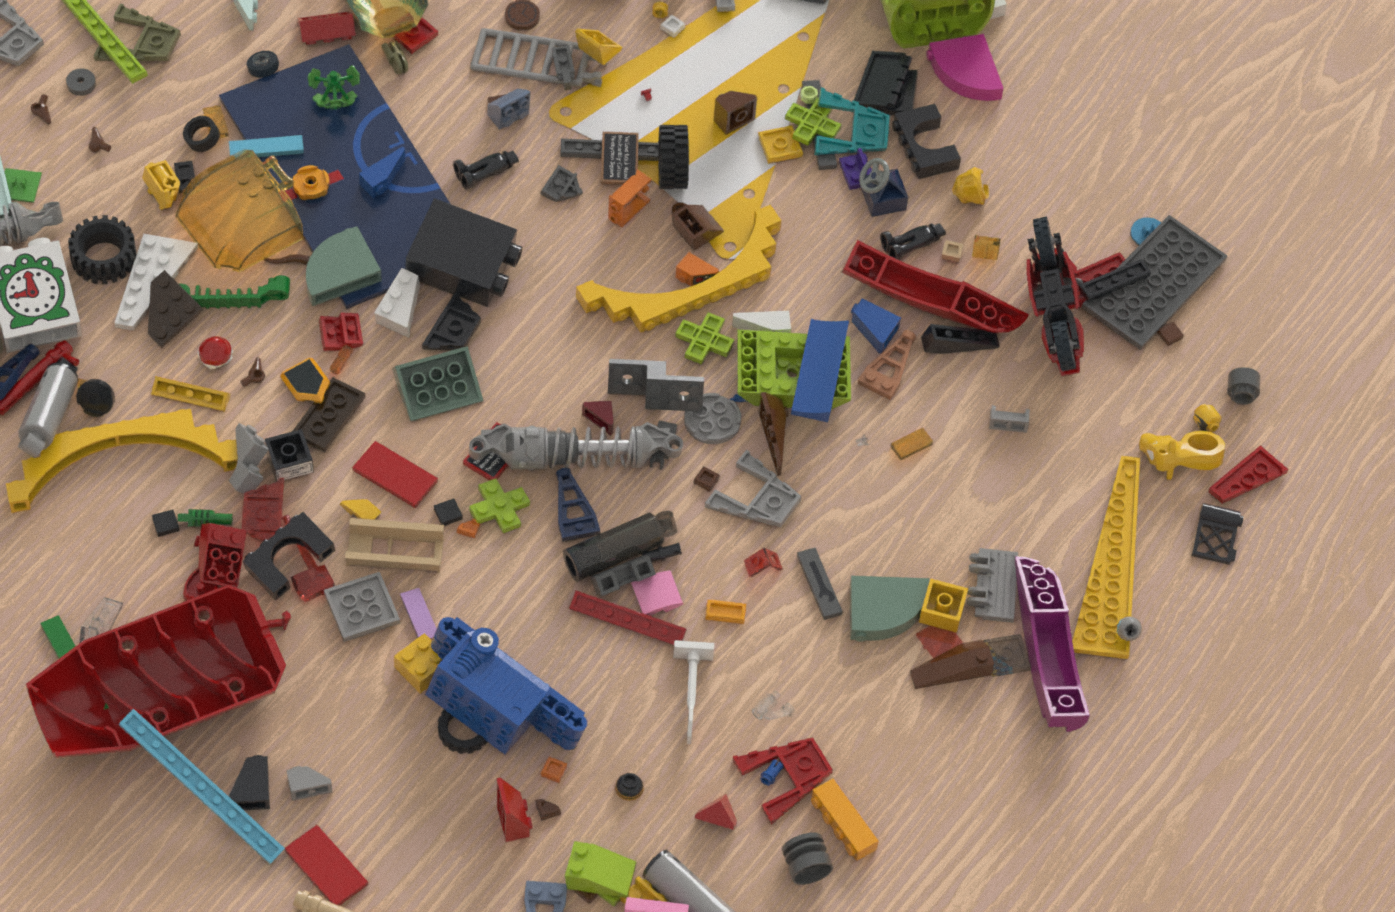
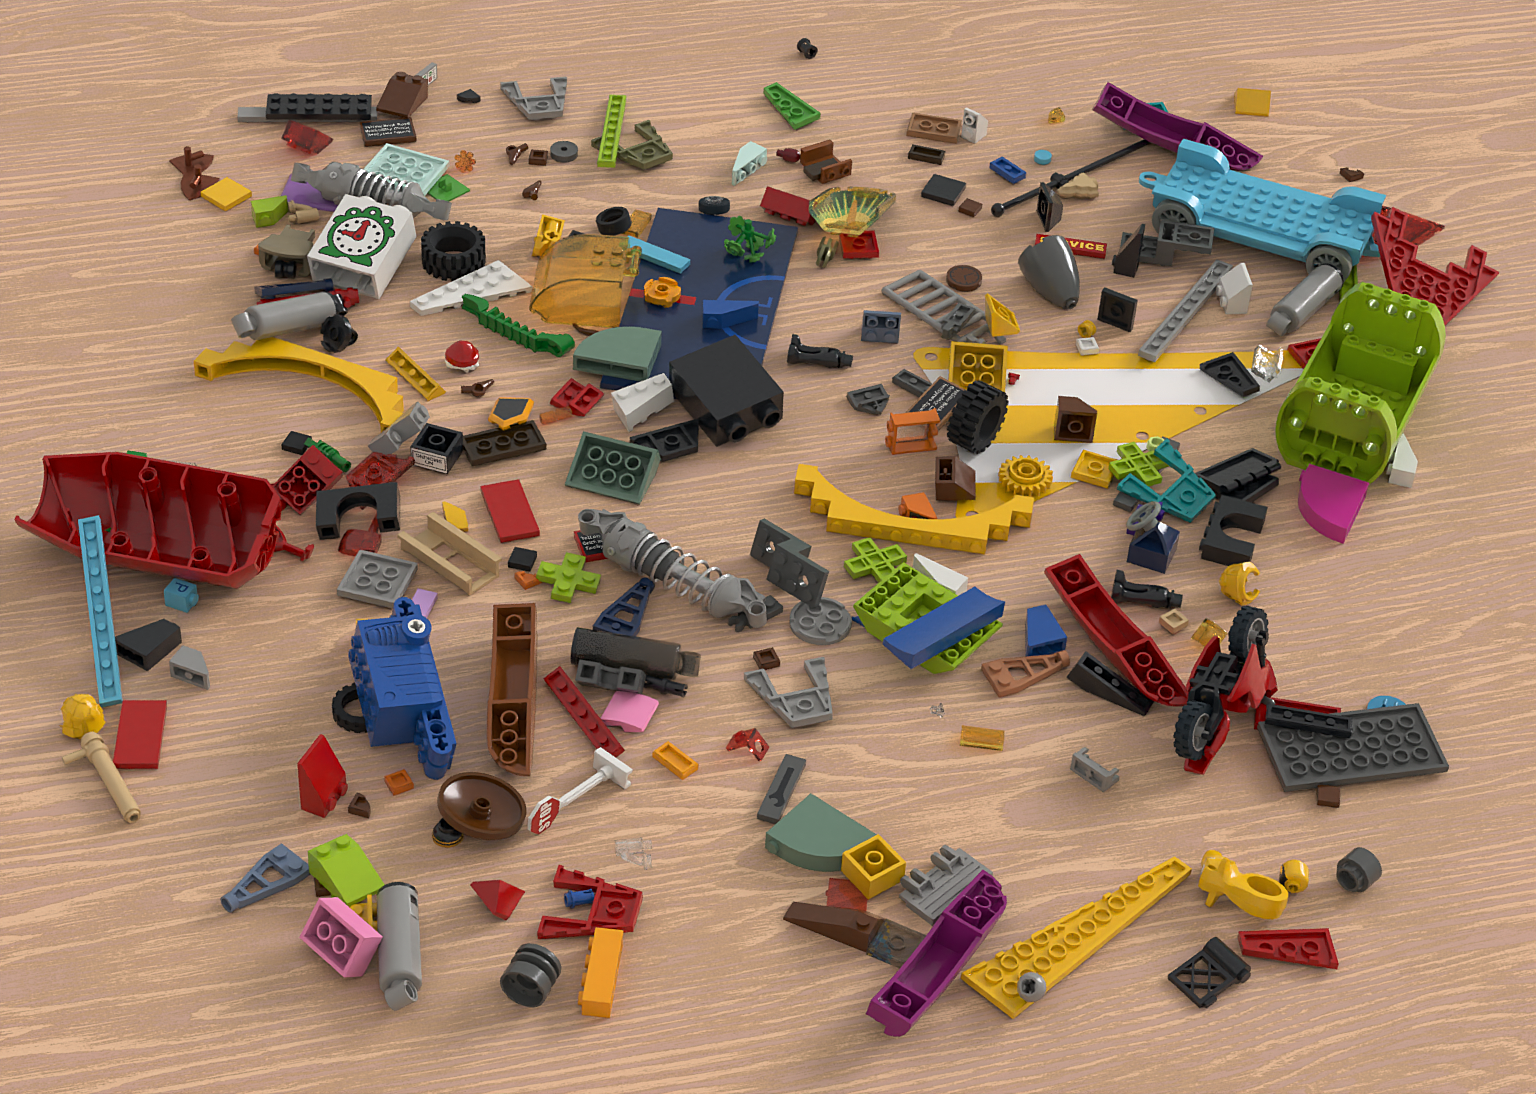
camera: 40 degrees right, 15 degrees down
(12, 146) = (465, 161): none -> clear orange plant
(65, 102) = (538, 157): none -> reddish brown tile
(169, 309) = (458, 311): dark brown plate -> none
(230, 726) = (181, 595): none -> medium azure brick
(274, 885) = (81, 716): none -> yellow helmet
(566, 634) = (513, 687): none -> dark orange slope
(600, 414) = (725, 559): dark red slope -> none
(619, 105) = (978, 362): none -> yellow slope
(639, 748) = (481, 806): none -> reddish brown dish
(741, 185) = (1025, 476): none -> yellow gear
(773, 420) = (864, 653): reddish brown wedge -> none

